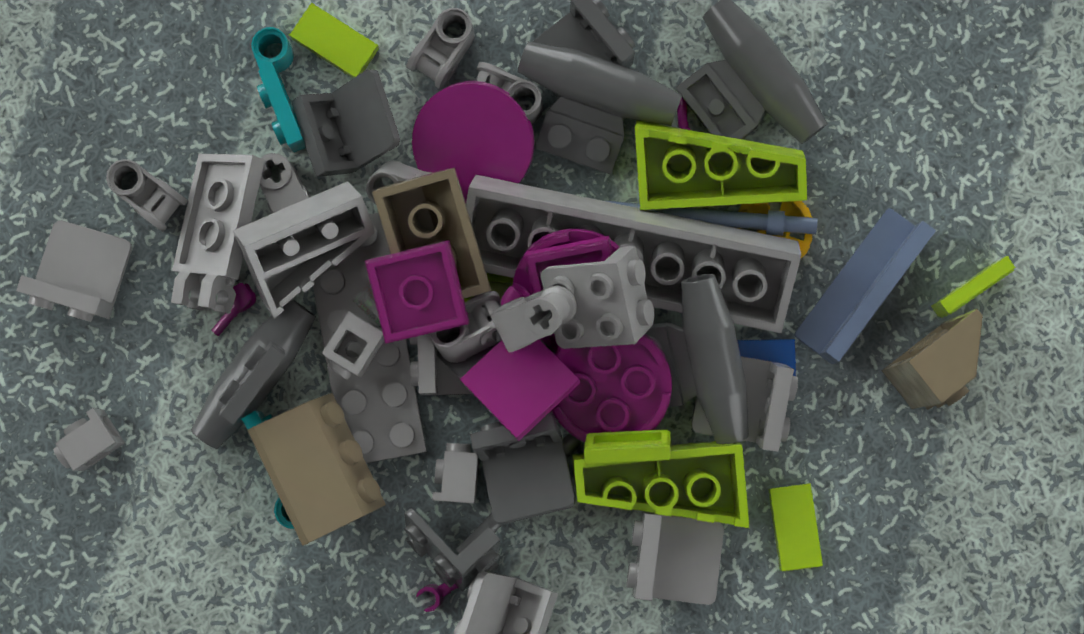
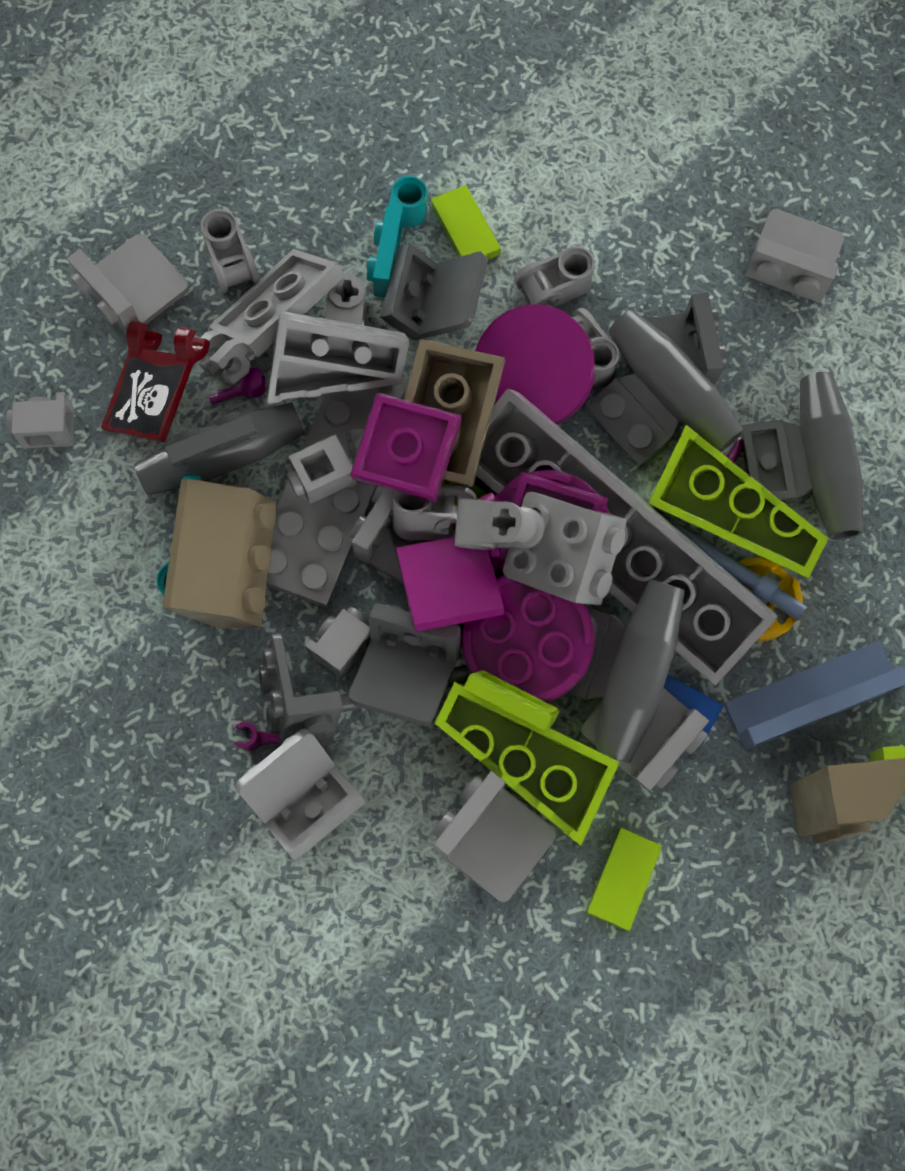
camera: 25 degrees right, 10 degrees down
(159, 353) = (152, 382): none -> flag

